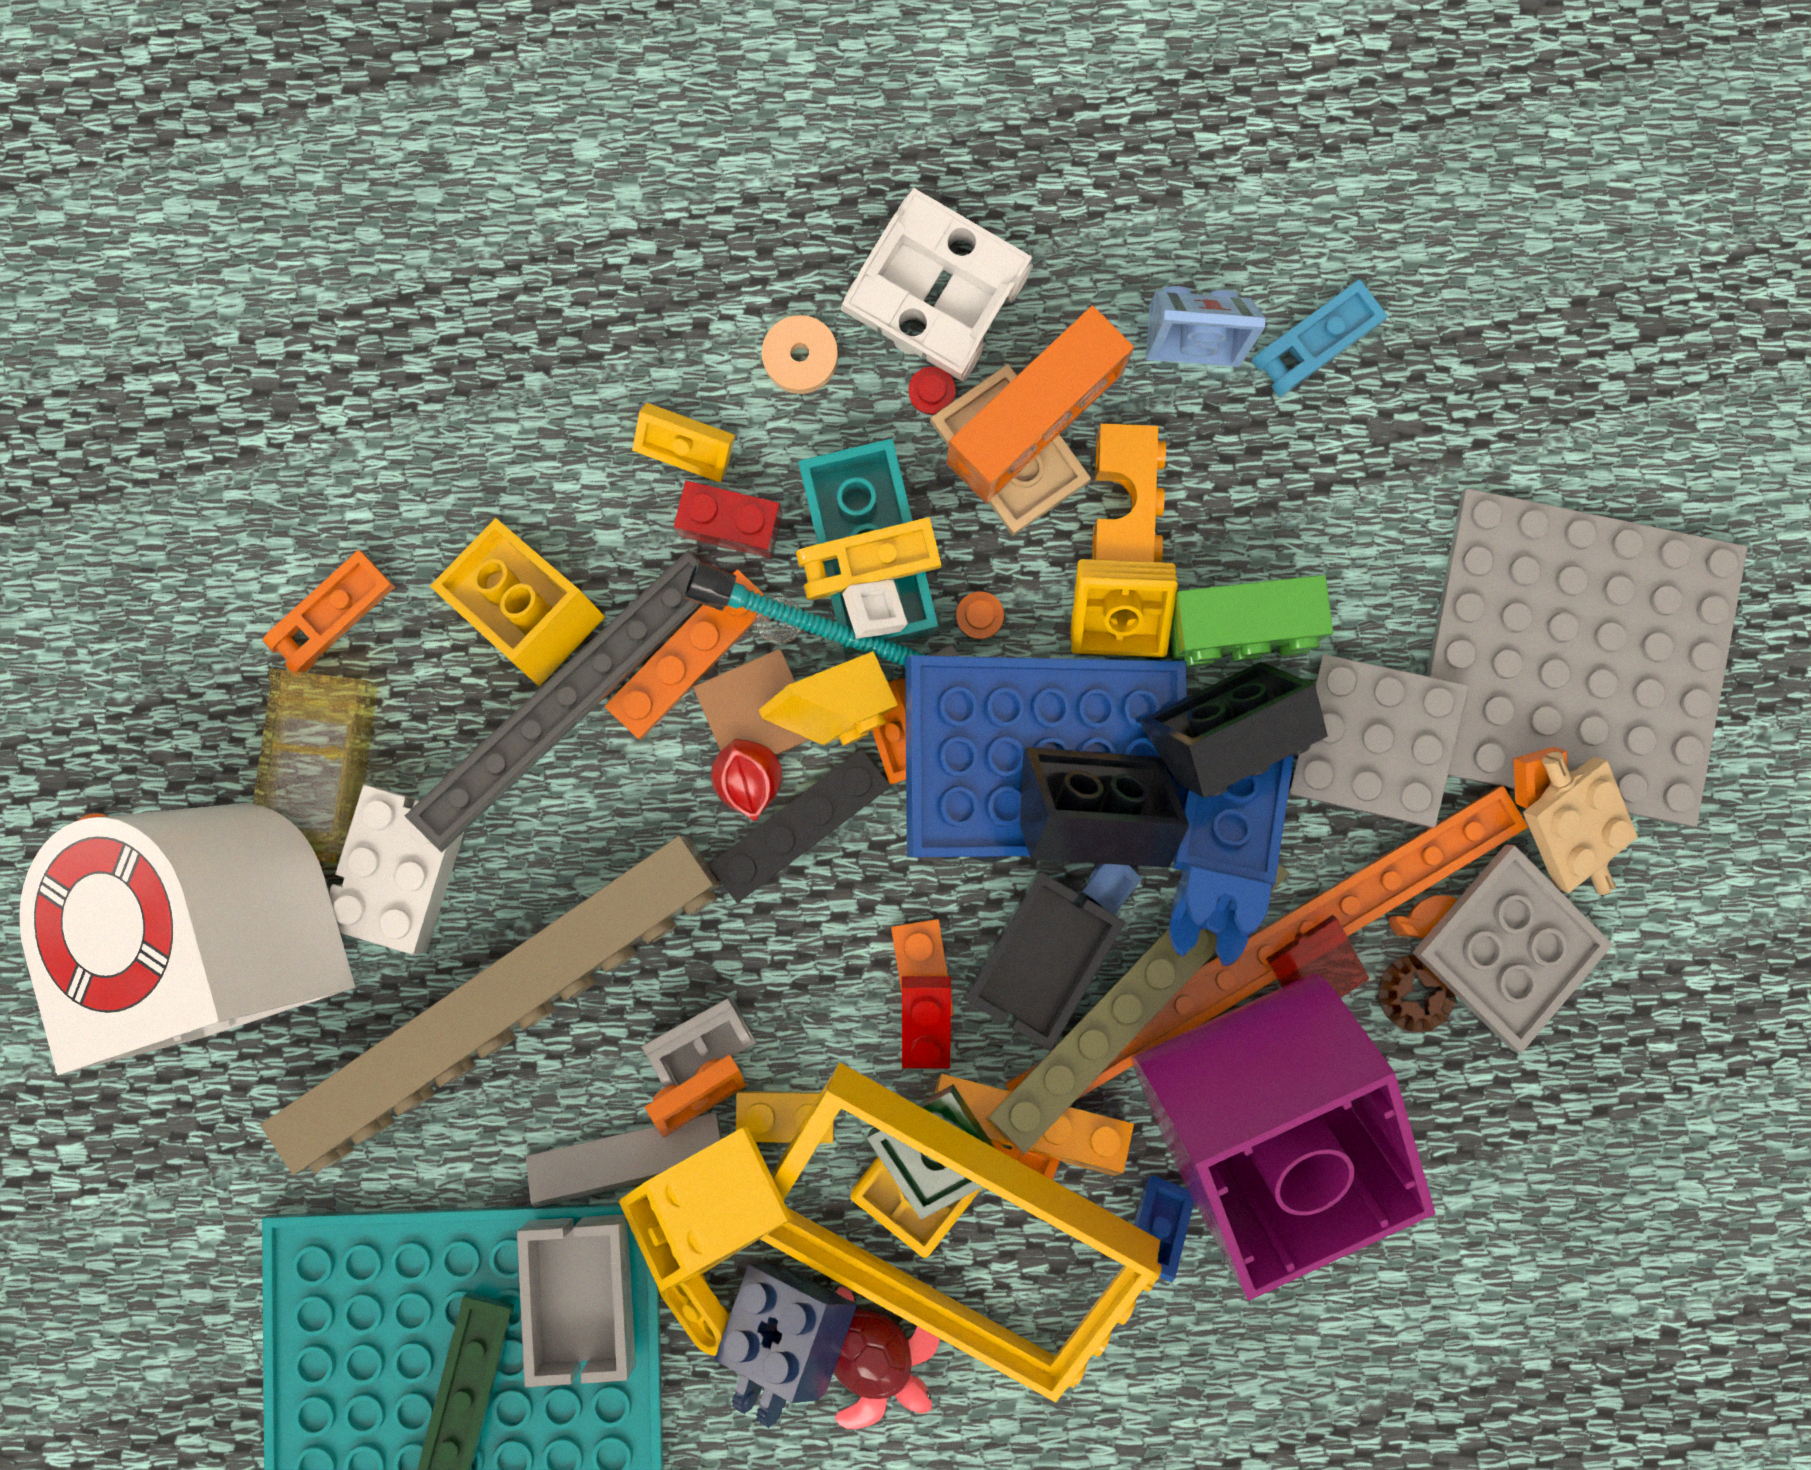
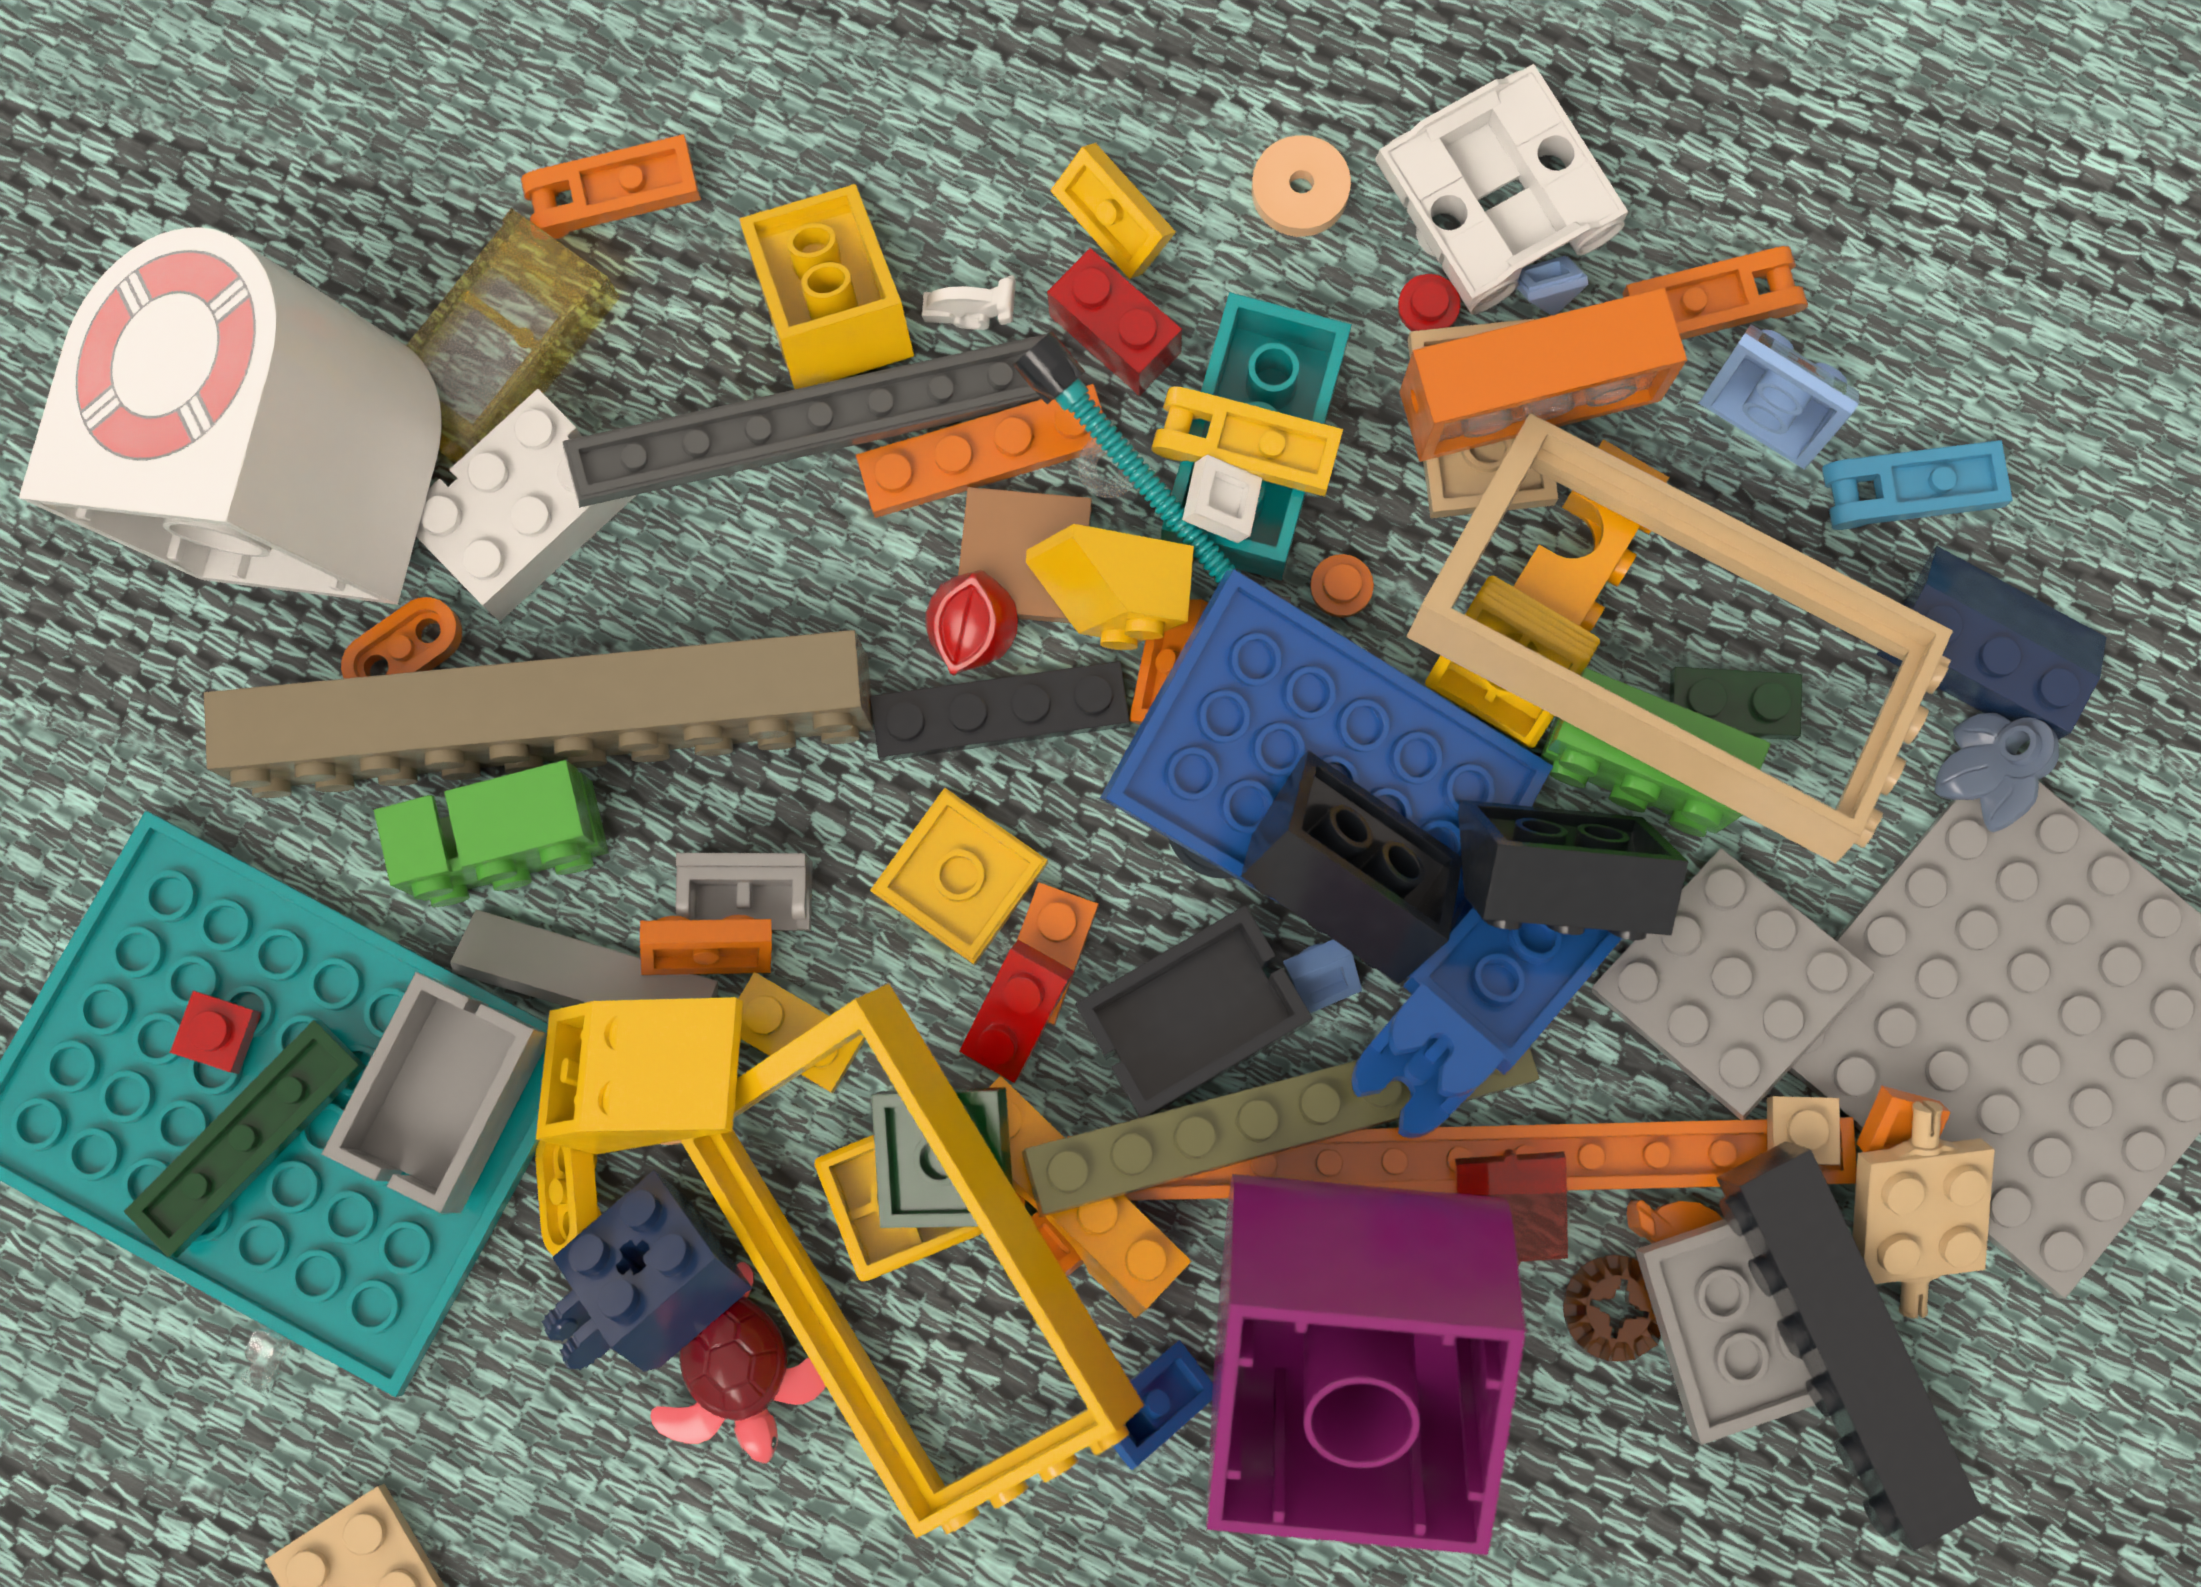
camera: 35 degrees right, 5 degrees down
(372, 1008) = (401, 643): none -> orange plate
(400, 1340) = (215, 1032): none -> red plate
(510, 1105) = (493, 834): none -> bright green piece
(626, 561) = (971, 306): none -> white piece
(835, 951) = (959, 876): none -> yellow tile
(1007, 331) = (1552, 283): none -> light blue slope
(1121, 277) = (1726, 292): none -> orange plate
(1237, 452) = (1739, 550): none -> tan door
(1281, 549) = (1750, 701): none -> dark green plate
(1429, 420) = (2007, 646): none -> dark blue slope
(1470, 508) = (1993, 771): none -> sand blue plate
(1477, 813) = (1807, 1123): none -> tan plate
(1581, 938) = (1848, 1346): none -> black brick

